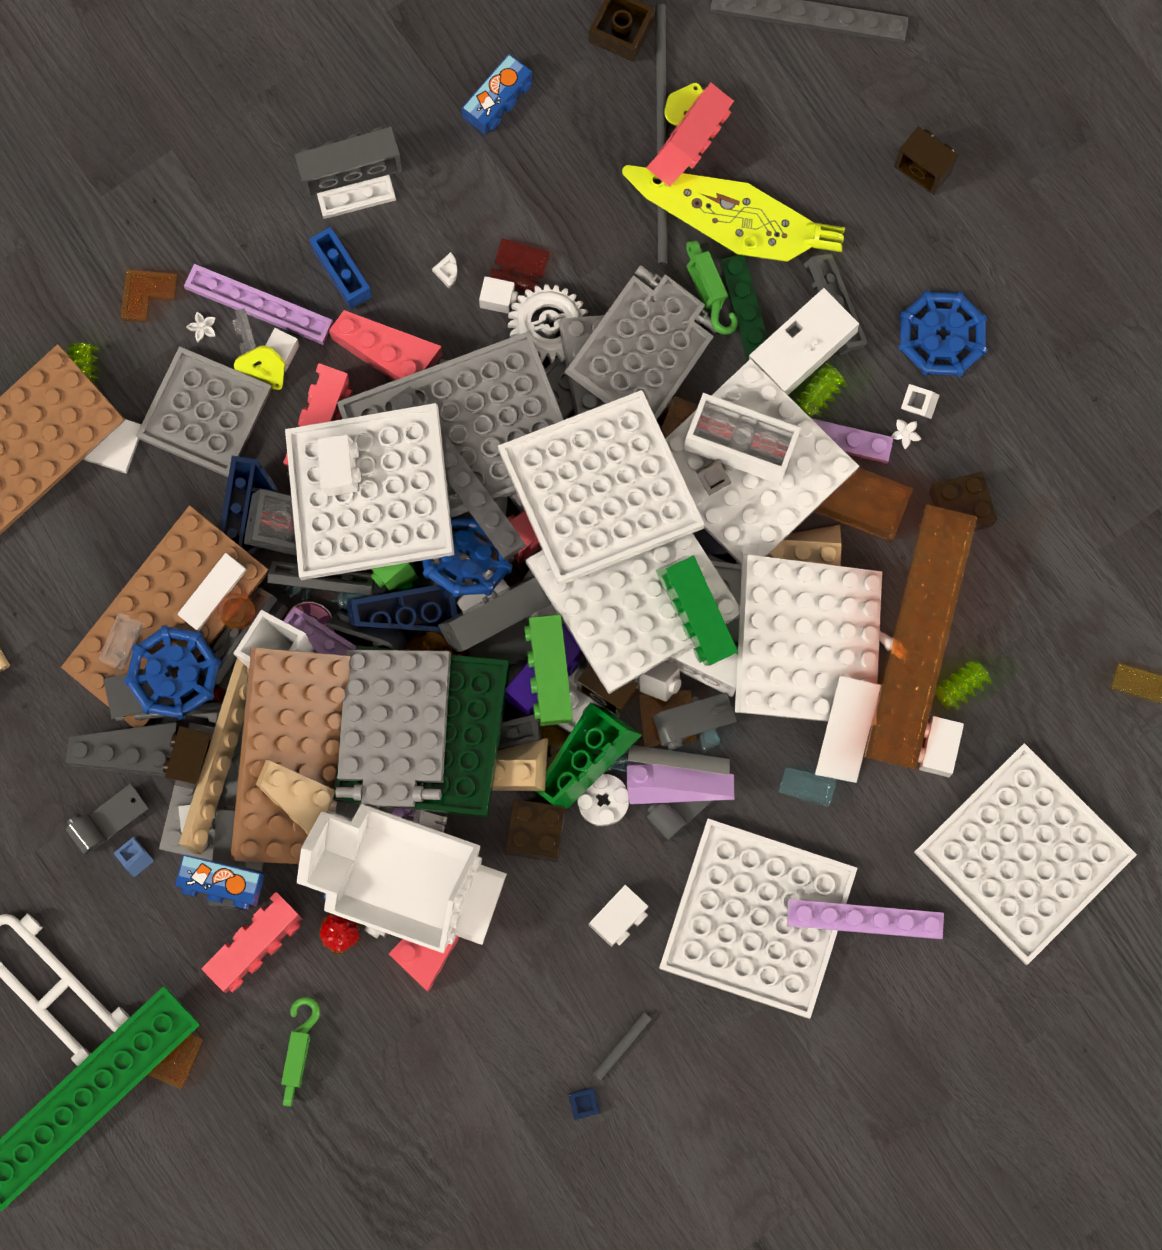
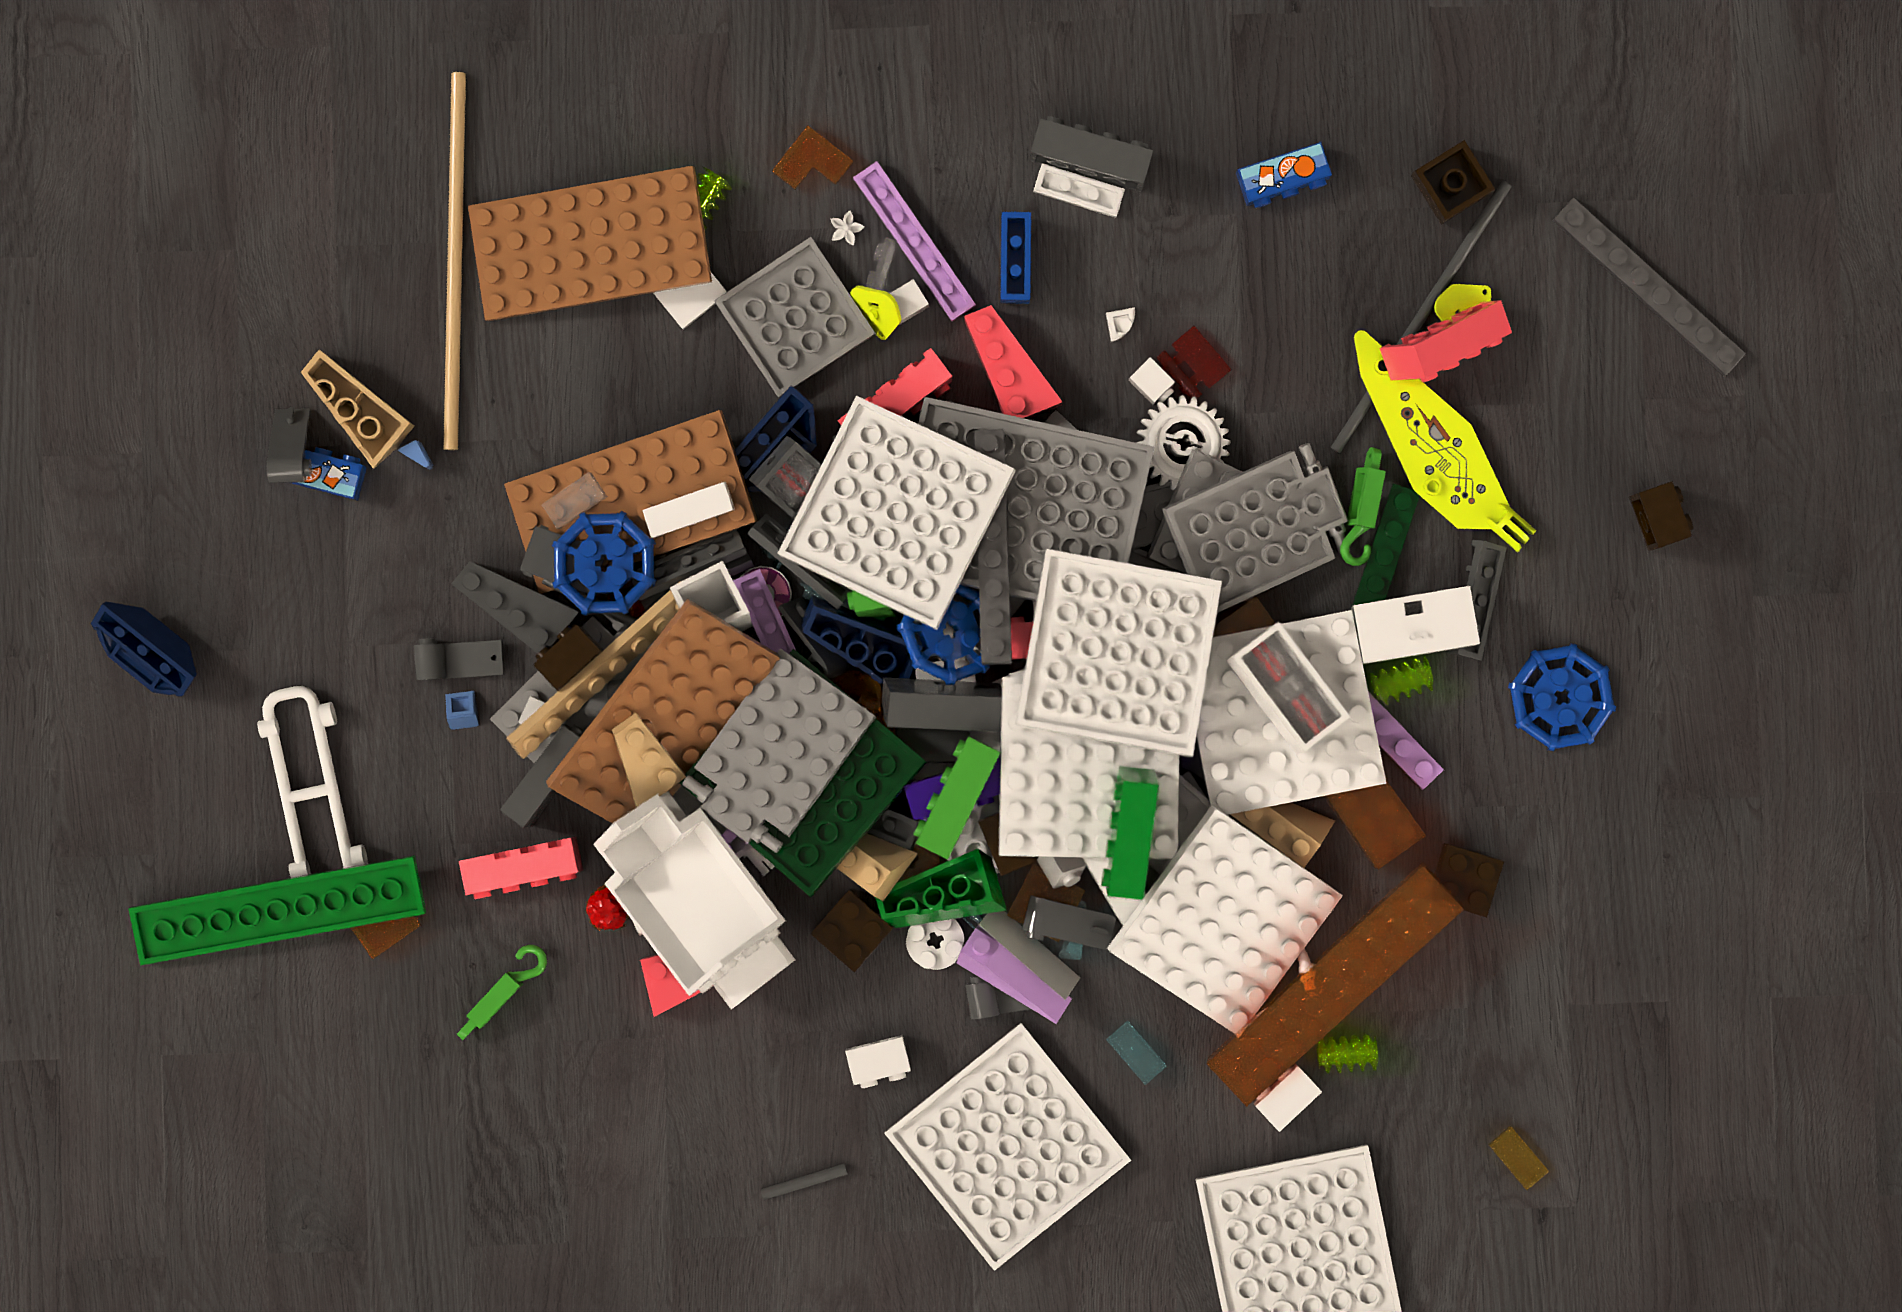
camera: 35 degrees right, 10 degrees up
(219, 882) = (522, 797): brick -> none
(236, 611) = (700, 543): clear orange brick -> none
(338, 465) = (882, 470): white brick -> none
(584, 1103) = (734, 1211): dark blue tile -> none
(713, 477) = (1236, 707): plate -> none
(848, 729) = (1208, 1026): white sticker -> none
(865, 919) = (1106, 1213): lavender plate -> none
(906, 432) = (1459, 772): white plant -> none
(920, 401) = (1491, 753): white brick -> none

